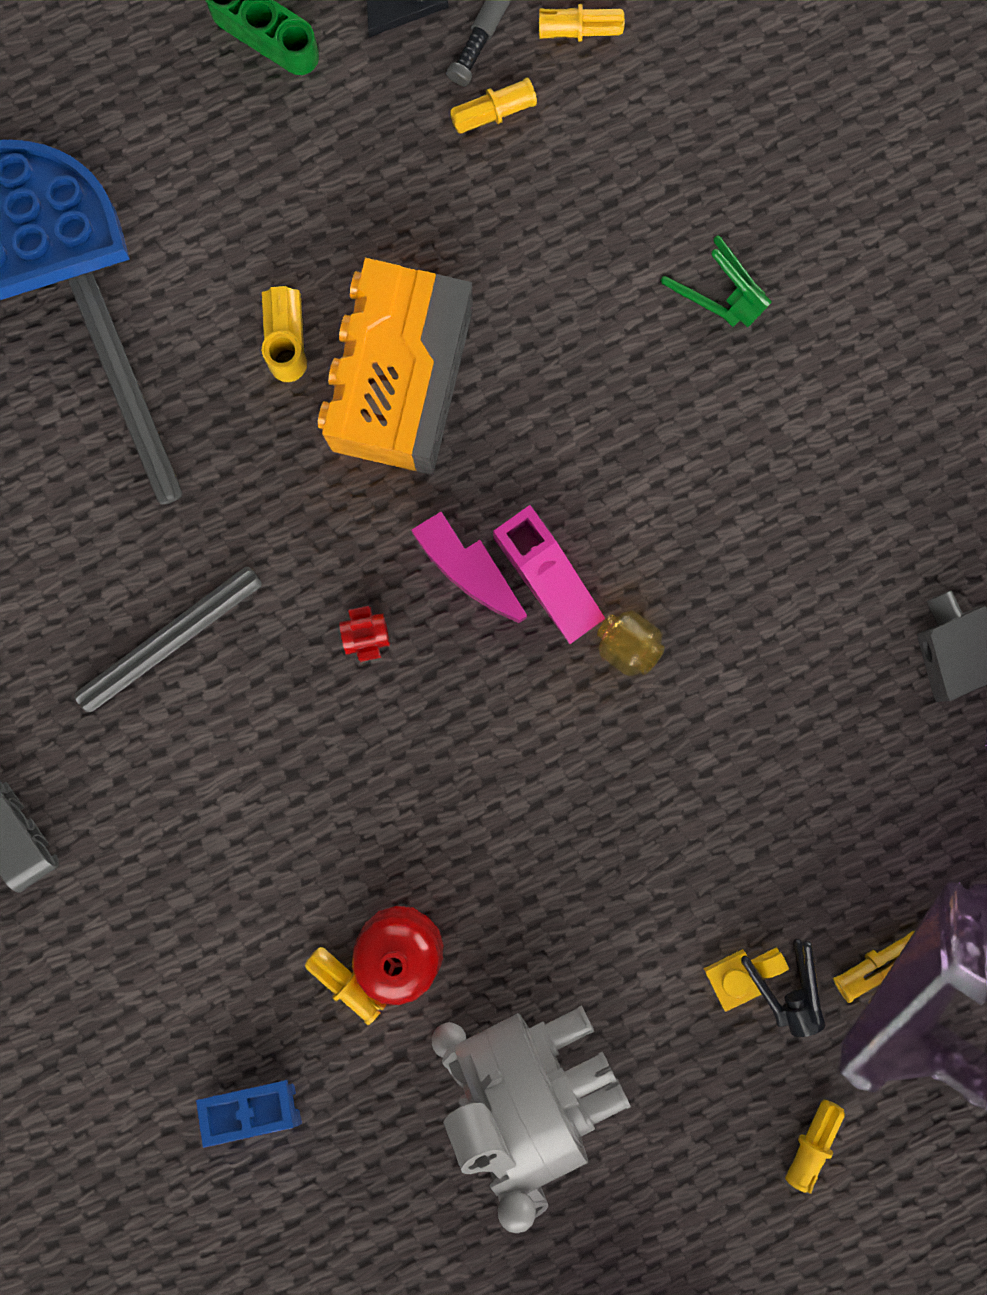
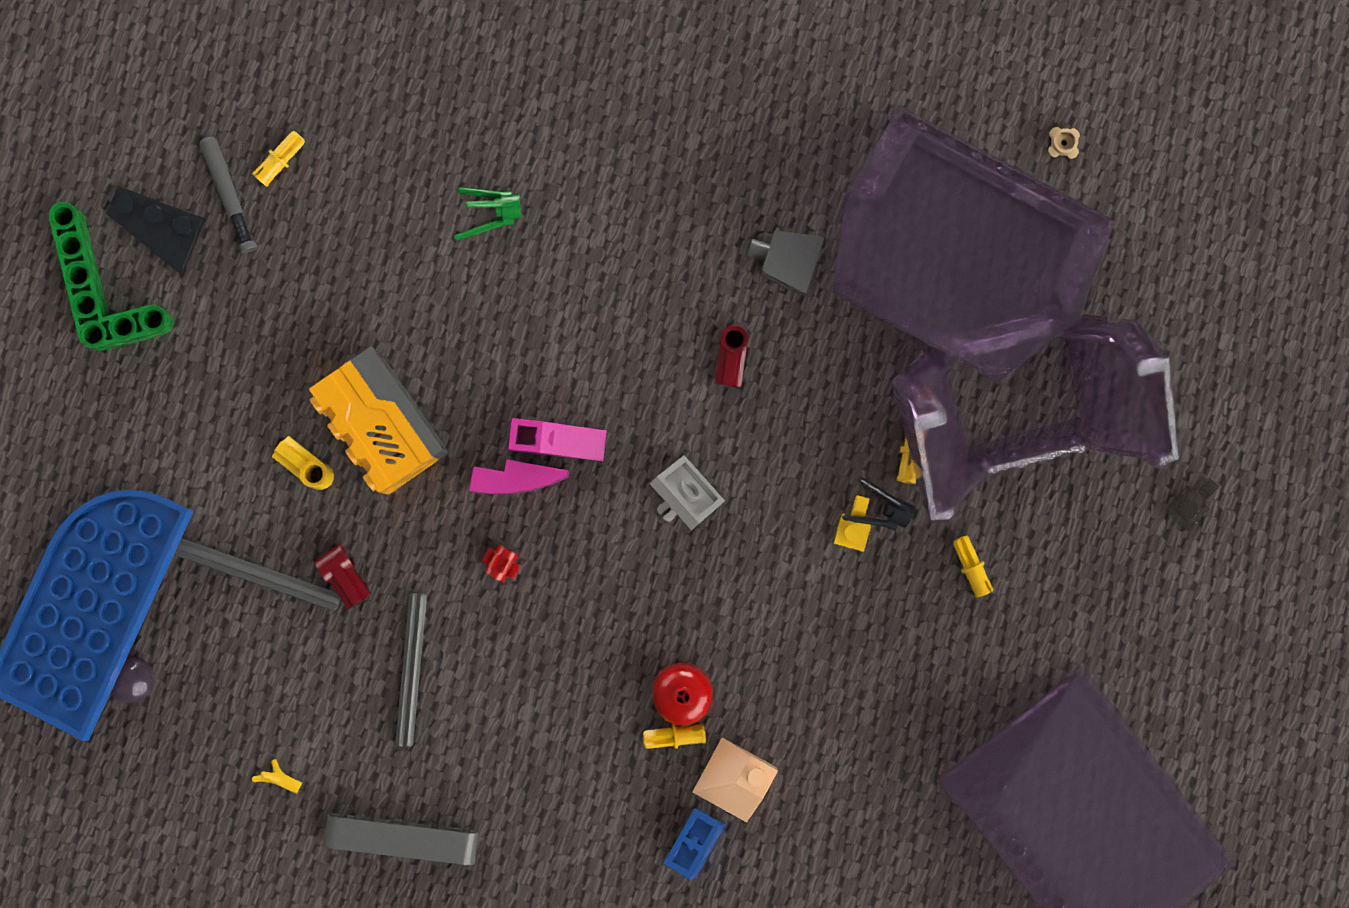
camera: 45 degrees left, 0 degrees up
(204, 472) = (340, 572): none -> dark red piece
(357, 1095) = (735, 780): none -> light nougat slope
(493, 106) = (281, 244): yellow axle -> none
(522, 1109) = (812, 695): light grey piece -> none
(615, 765) = (686, 493): none -> light grey tile
(630, 643) = (630, 429): clear yellow head -> none
(803, 684) = (731, 360): none -> dark red piece

